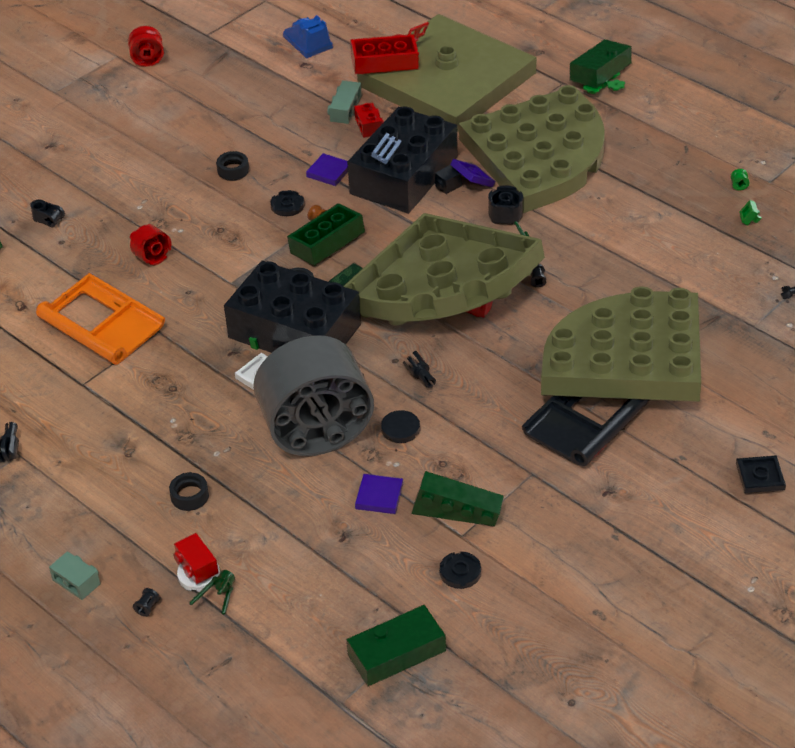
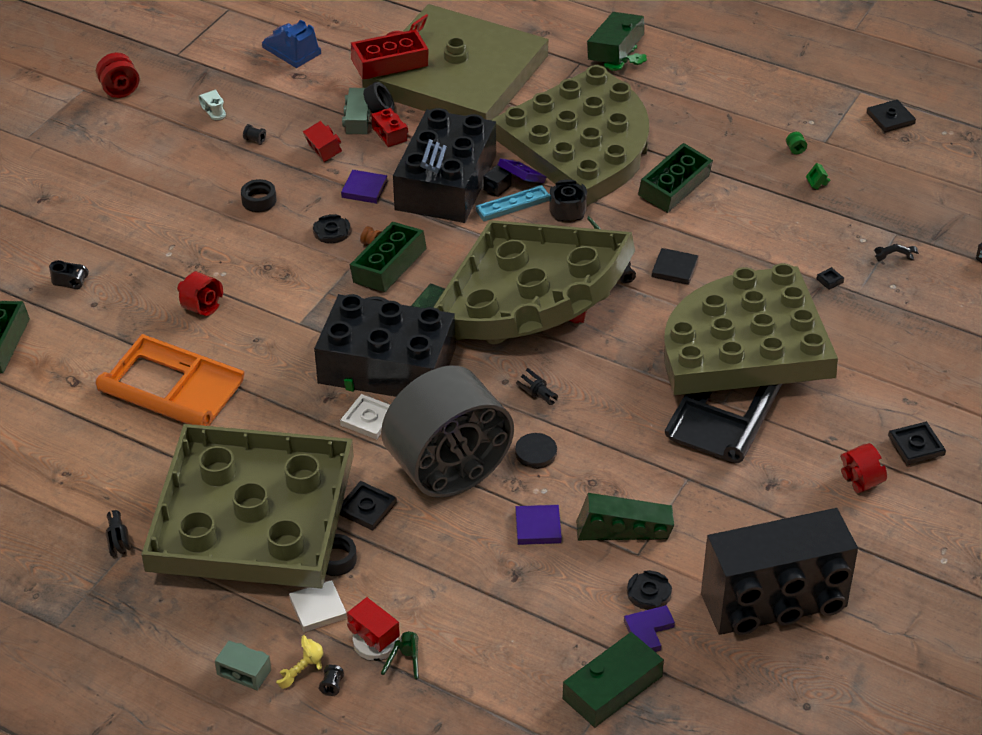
camera: 15 degrees left, 0 degrees up
(124, 436) = (249, 506): none -> olive piece
(136, 576) = (311, 655): none -> light yellow piece
(158, 534) = (318, 606): none -> white tile
(220, 81) = (212, 104): none -> light aqua piece
(232, 452) = (367, 505): none -> black tile
(247, 111) = (254, 134): none -> black bush
(304, 124) = (323, 141): none -> red brick
(370, 89) = (378, 97): none -> black tyre
(445, 599) = (647, 623): none -> dark purple tile
(455, 201) = (512, 203): none -> medium azure tile
(577, 571) = (778, 571): none -> black brick
(586, 277) = (675, 266): none -> black tile
(612, 196) = (675, 177): none -> dark green brick
(697, 489) = (863, 467): none -> red brick
(730, 309) = (830, 278): none -> black tile

